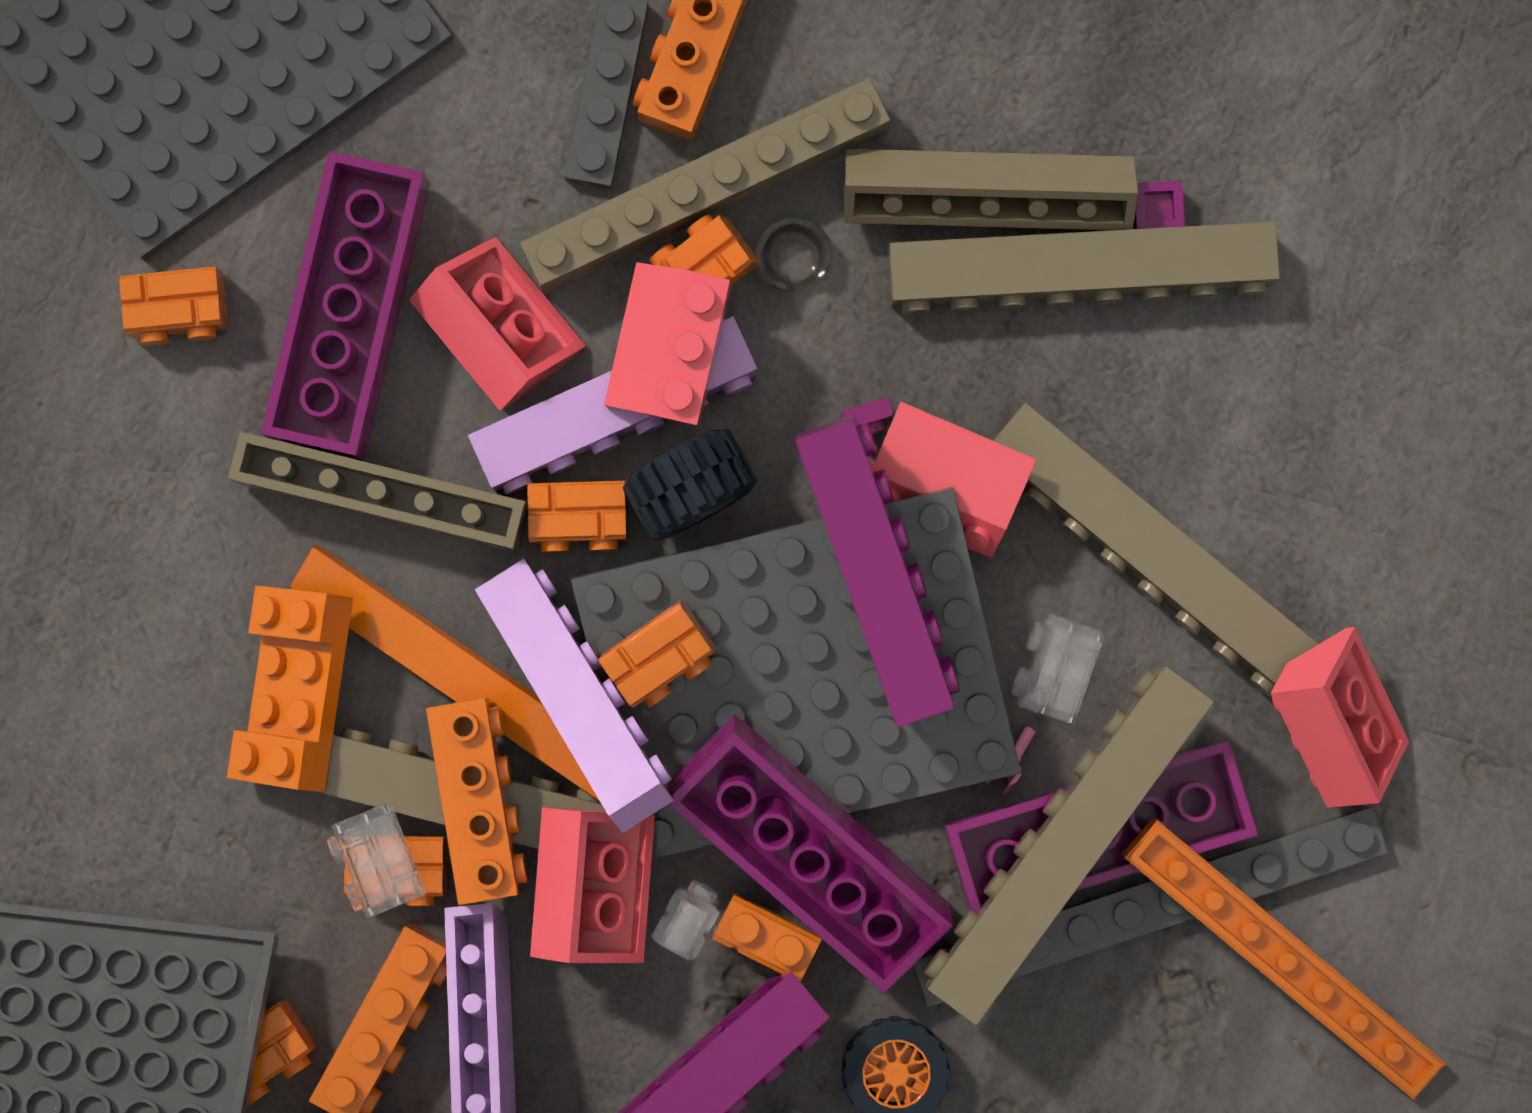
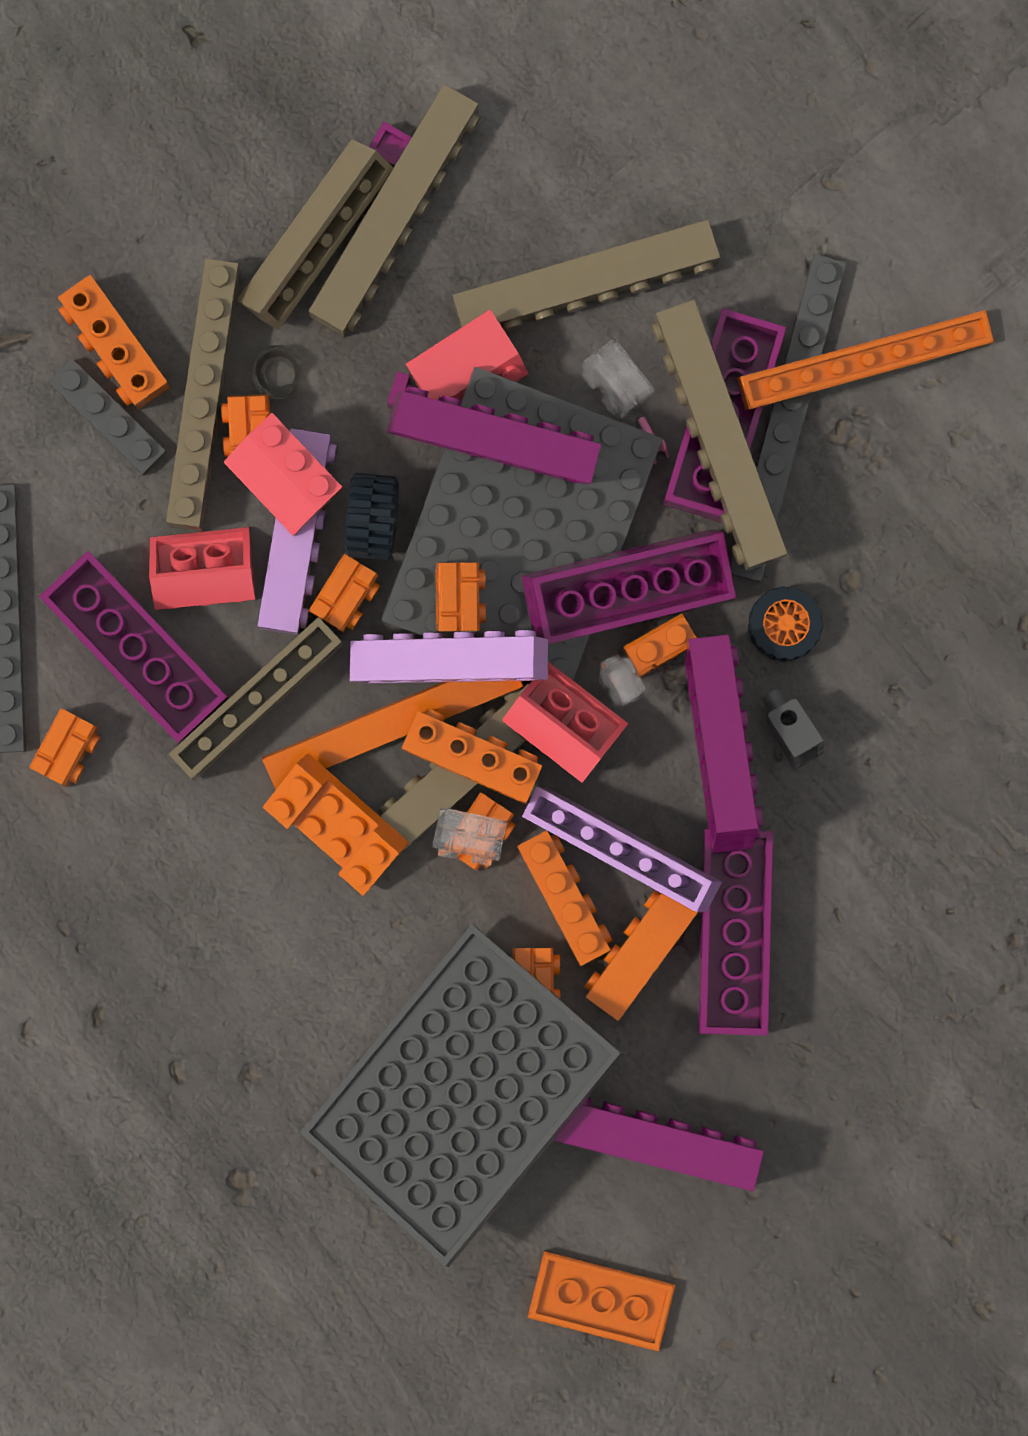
camera: 60 degrees left, 0 degrees up
(1341, 720) = (753, 237): coral slope -> none

